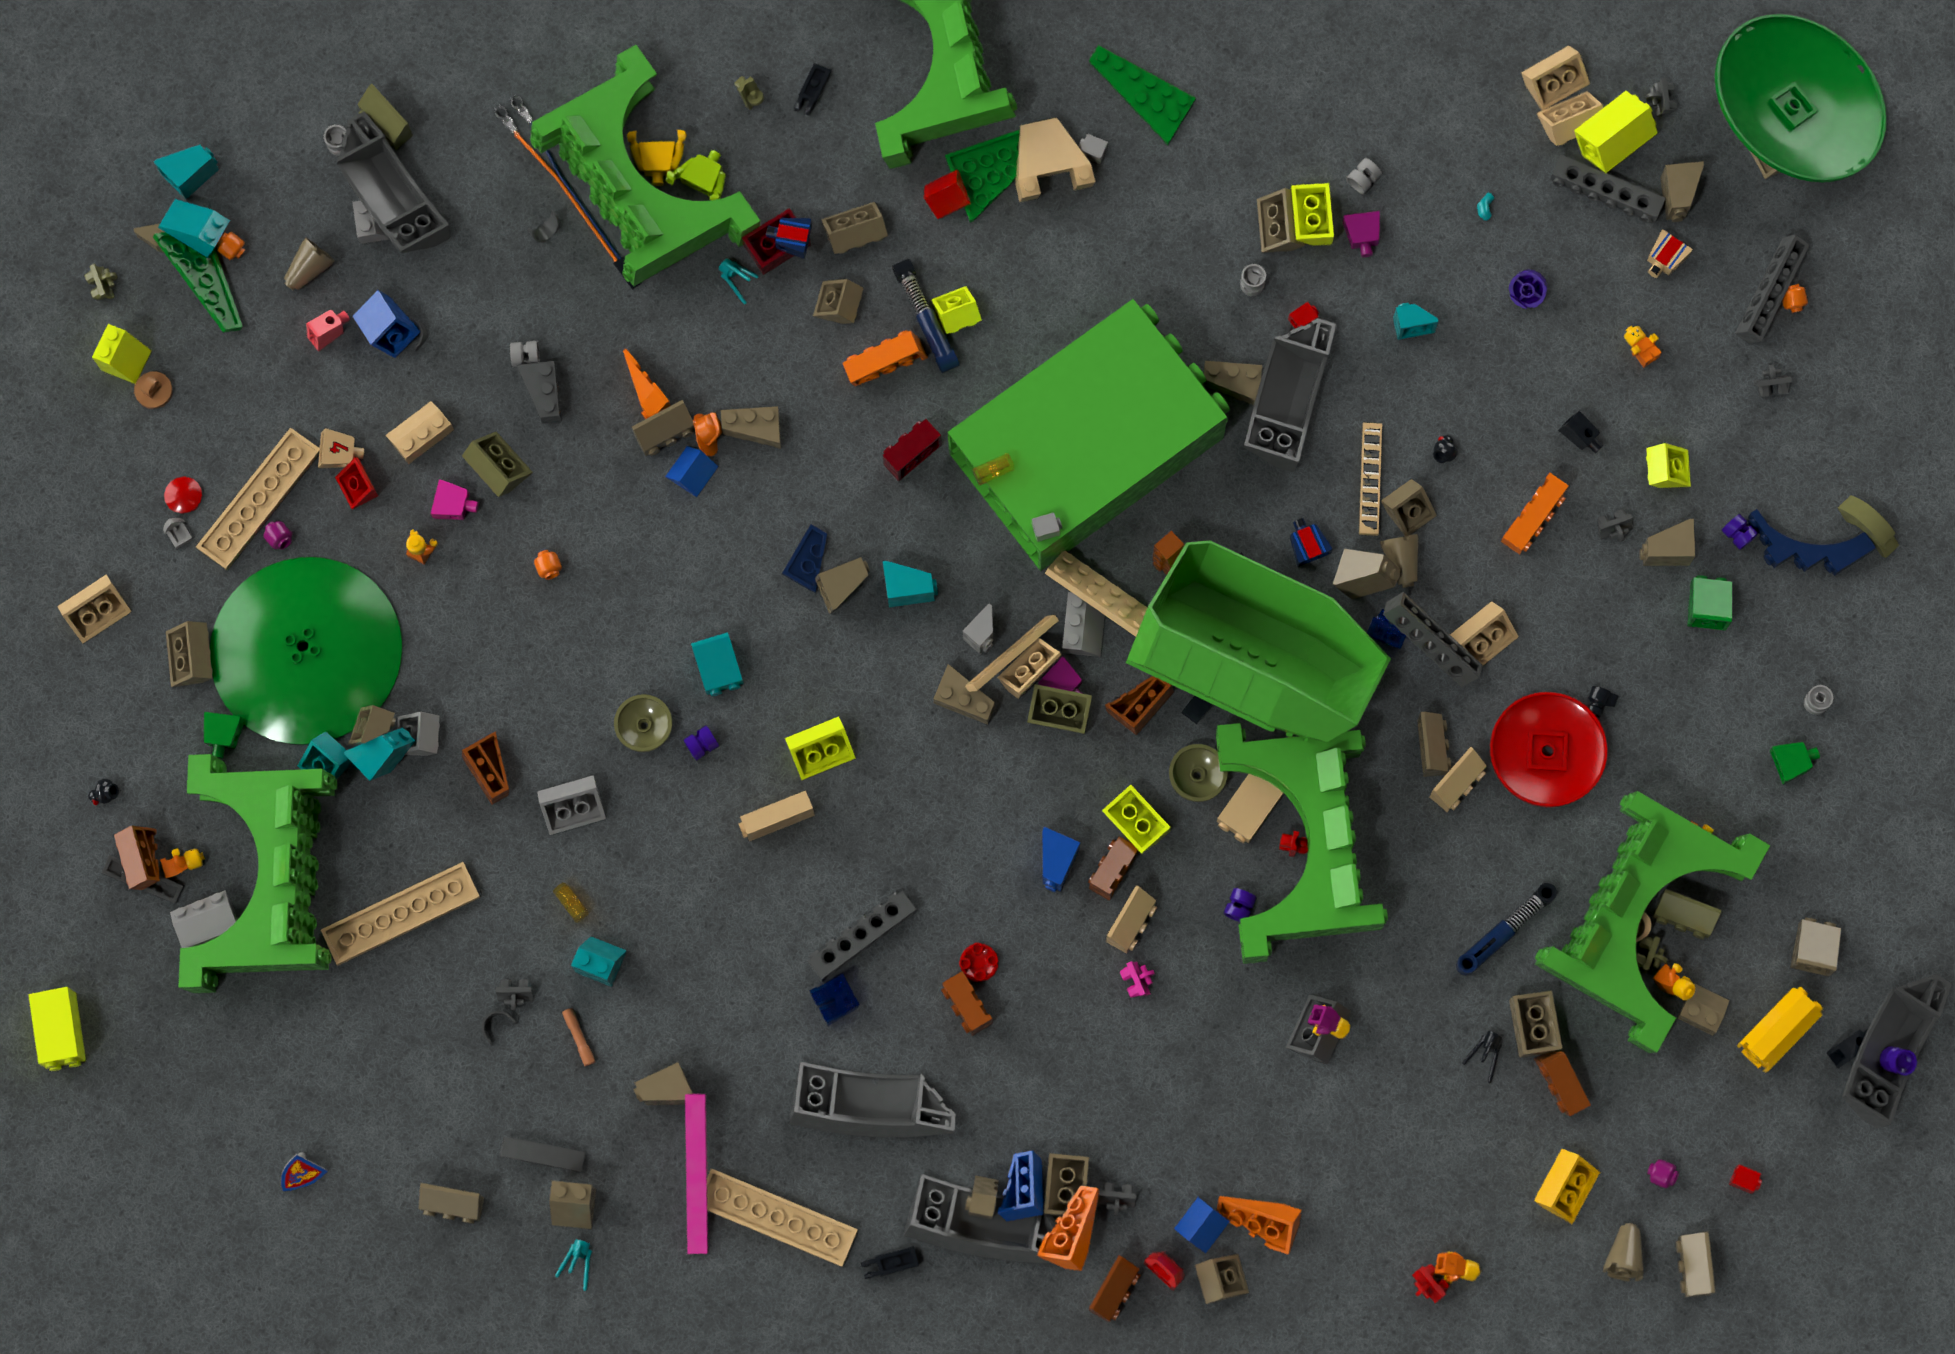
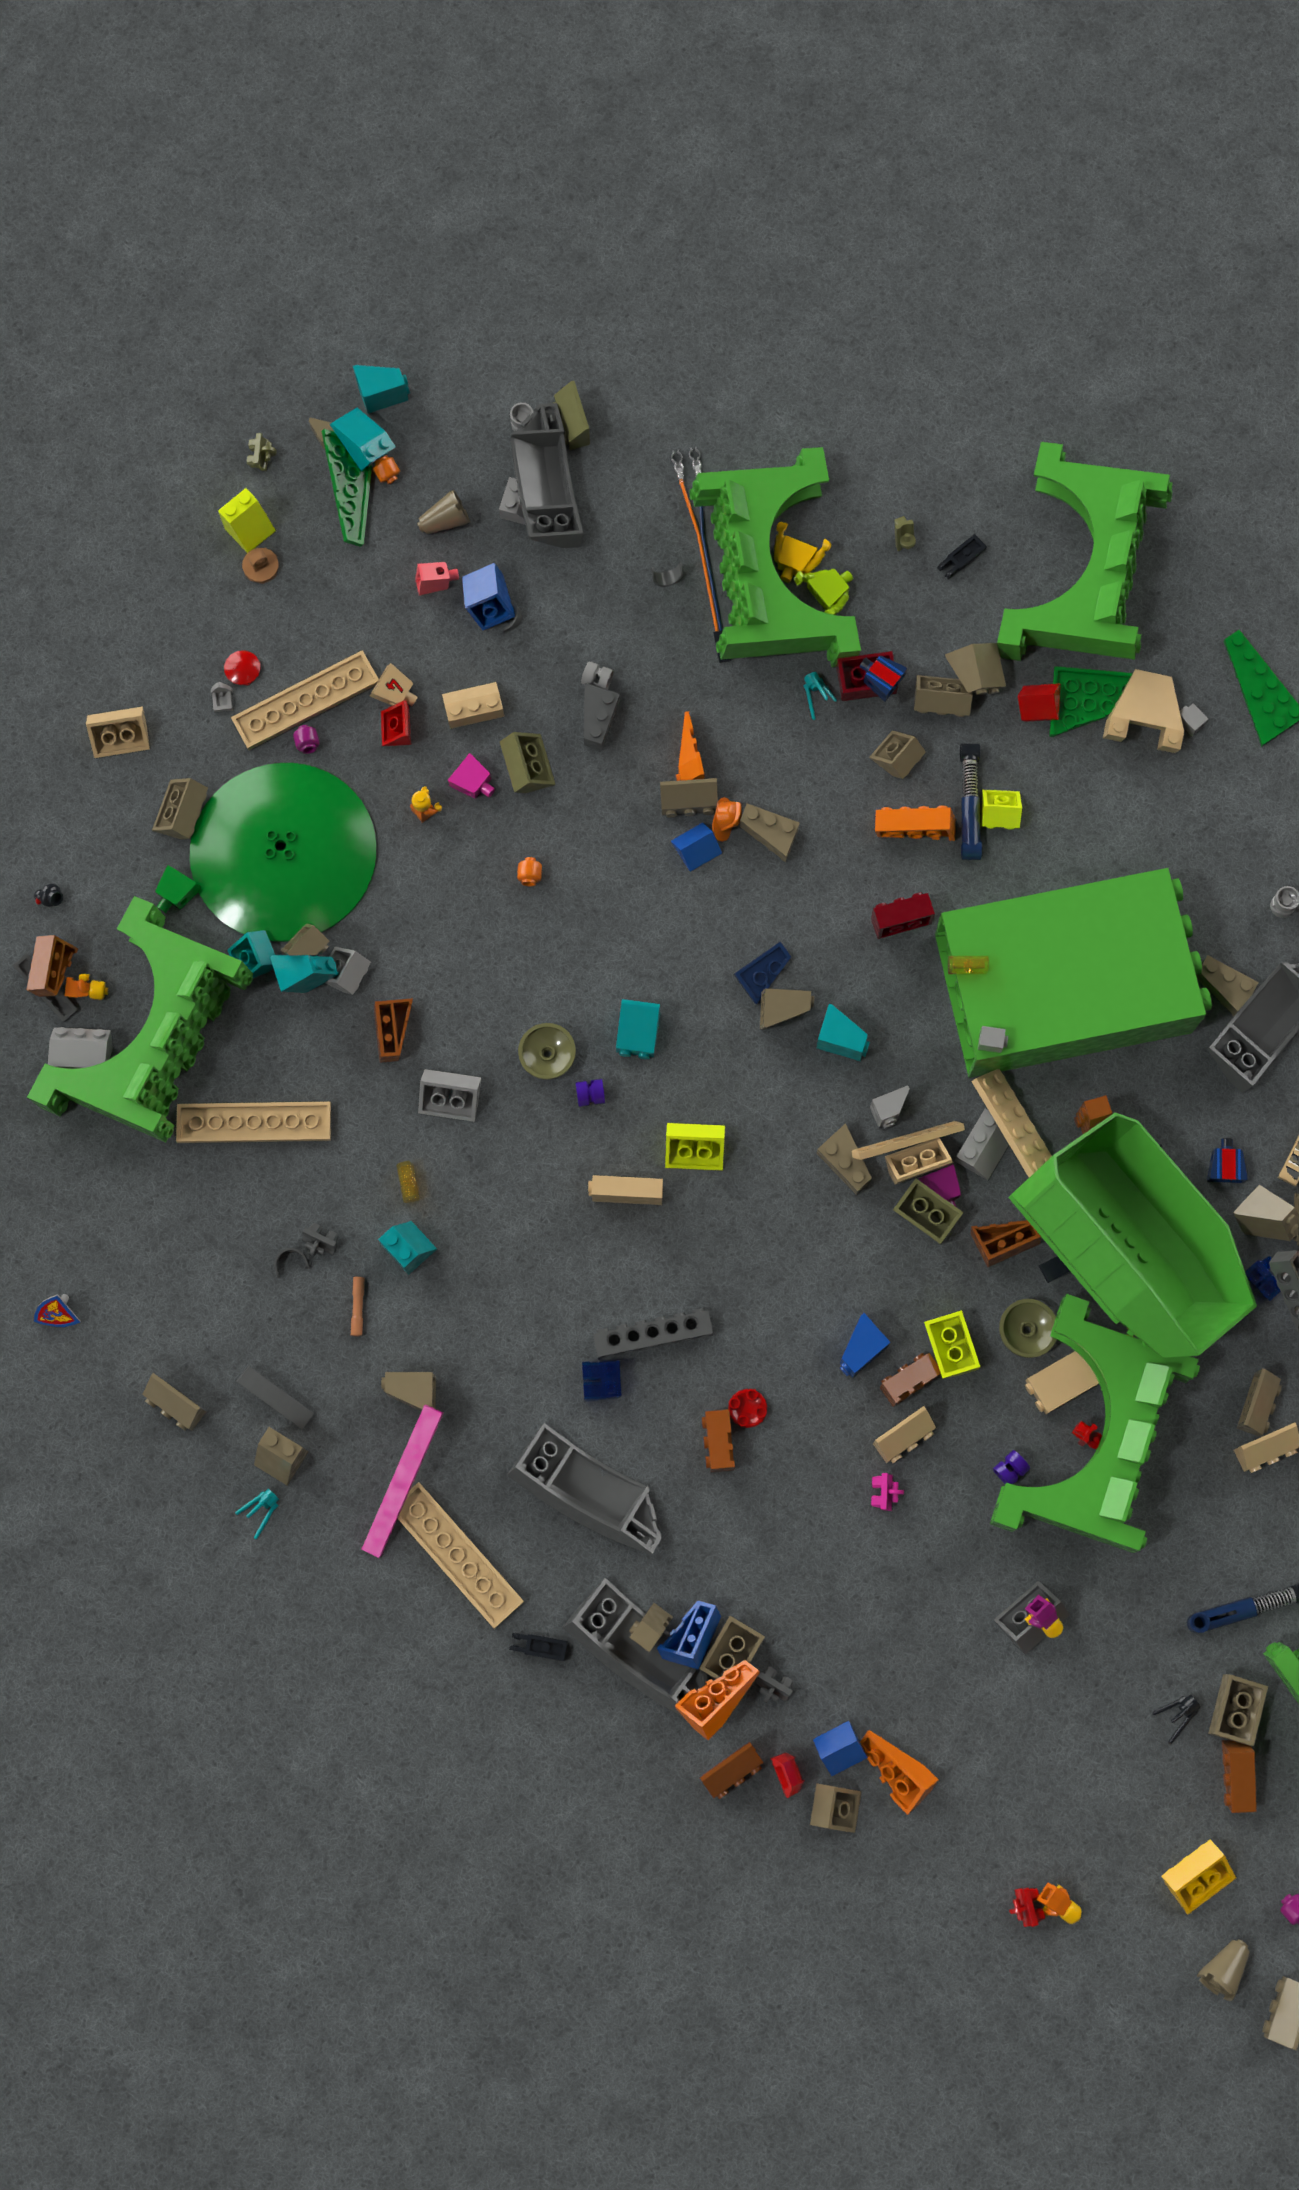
camera: 25 degrees right, 0 degrees up
(876, 188) = (978, 668): none -> dark tan slope

